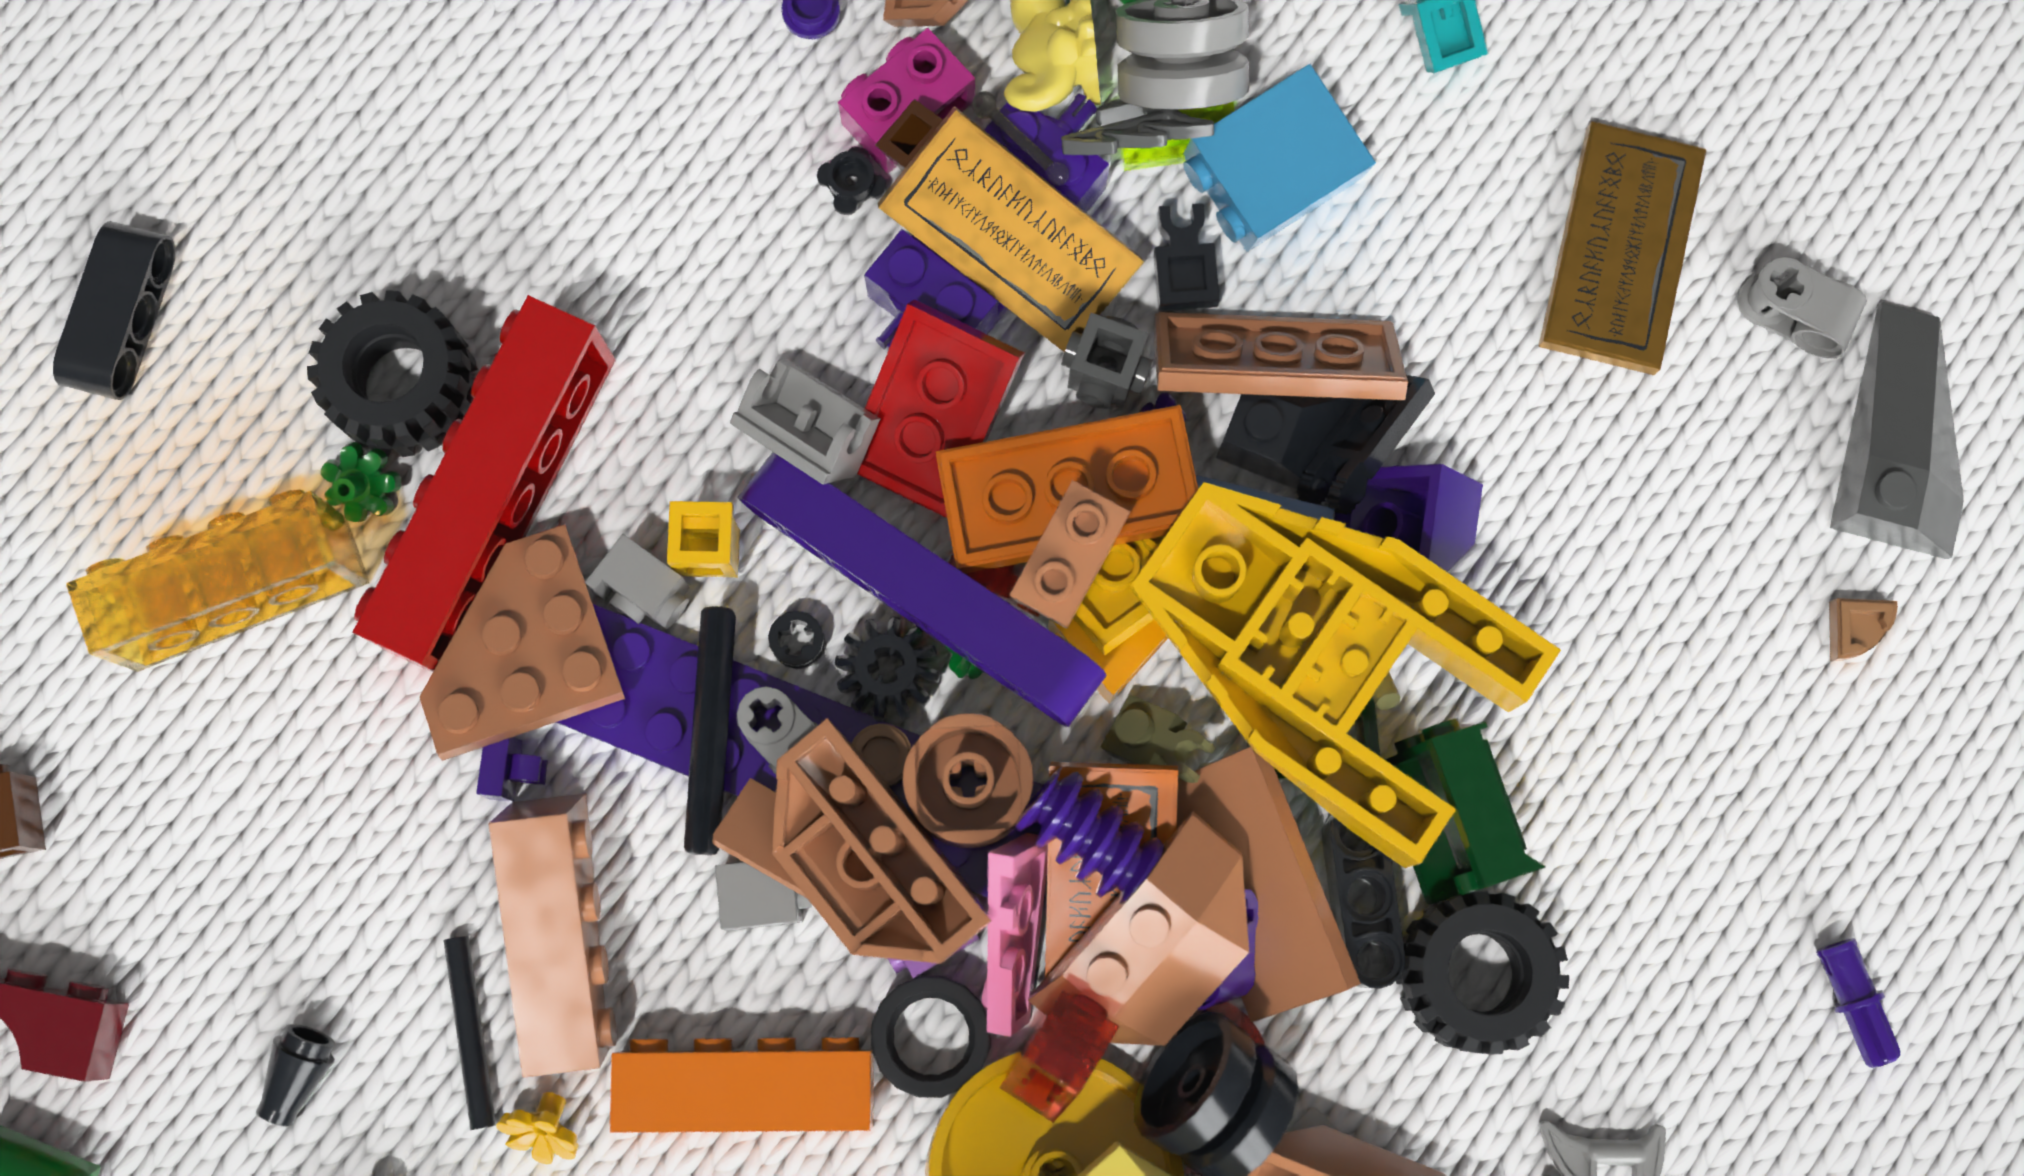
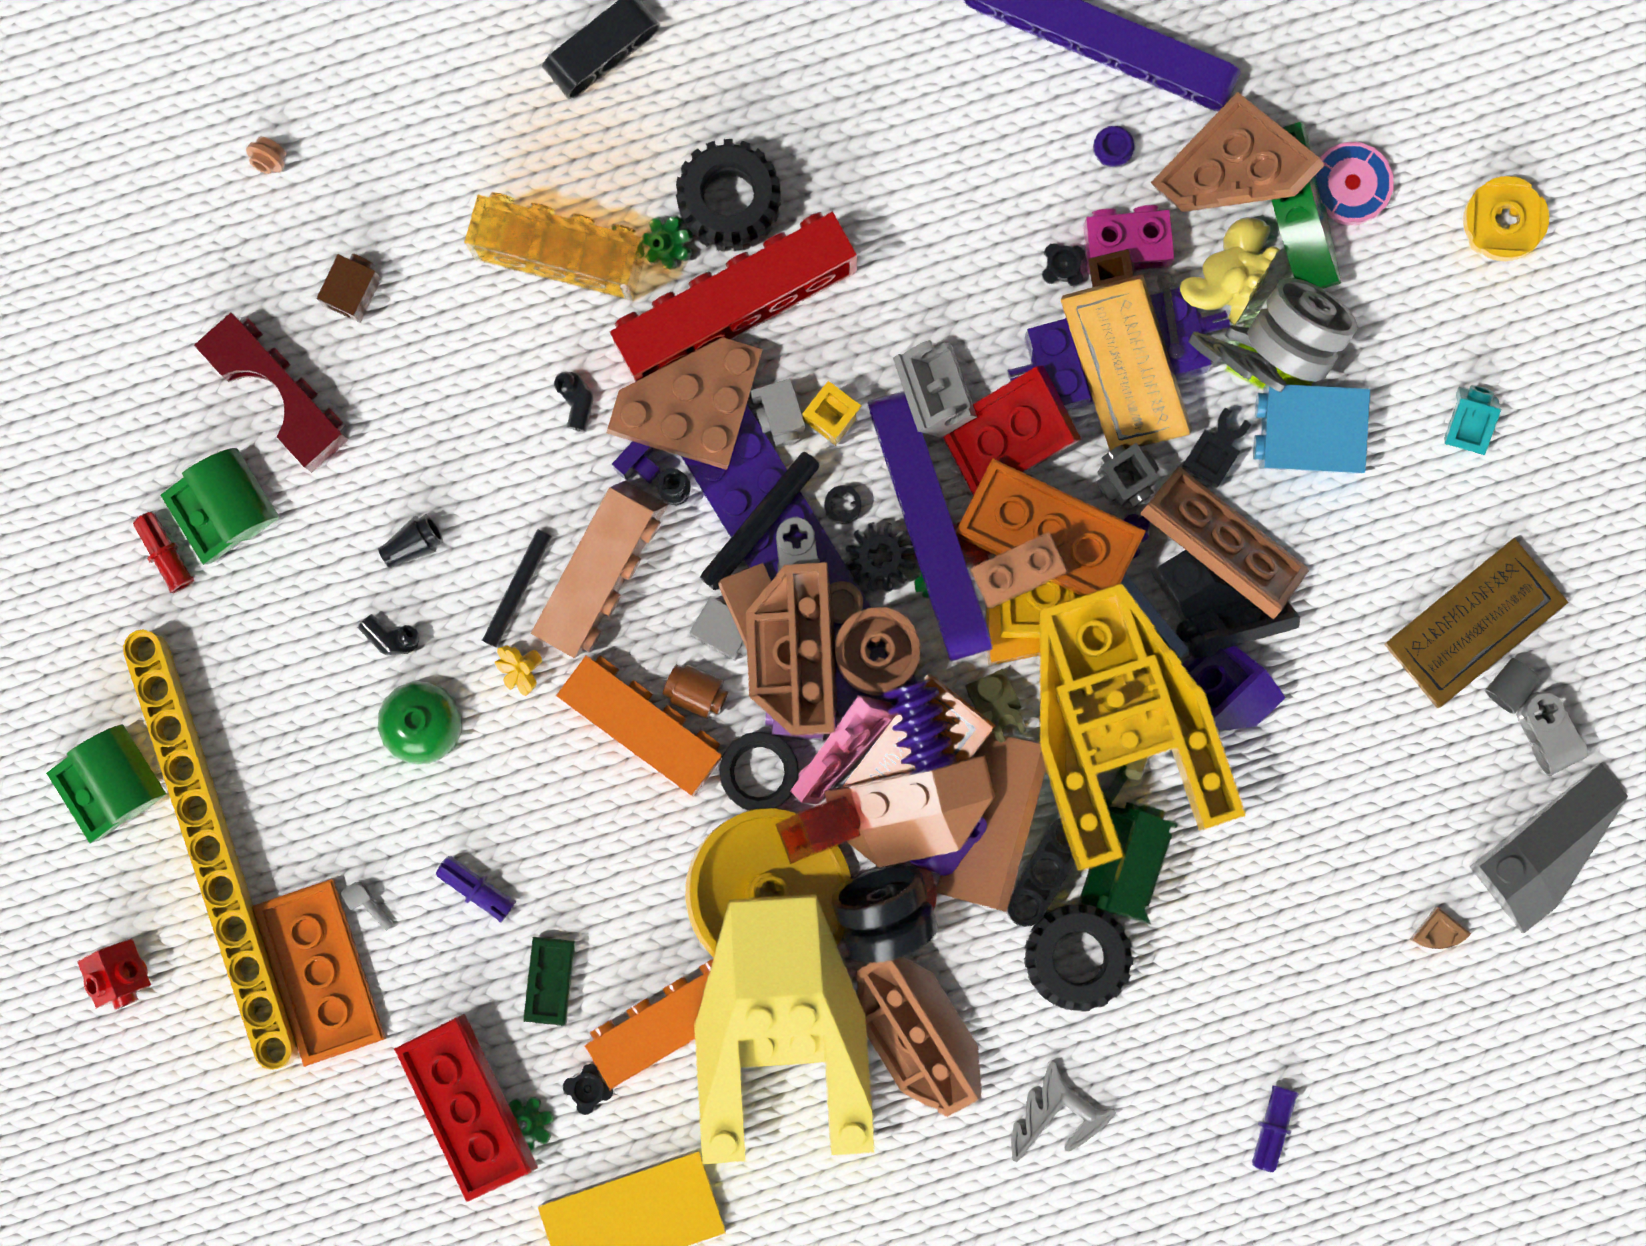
camera: 45 degrees right, 5 degrees up
(380, 743) = (579, 398): none -> black arm
(573, 770) = (674, 477): none -> black pin
(780, 995) = (695, 691): none -> dark orange brick
(1721, 285) = (1513, 685): none -> dark grey beam

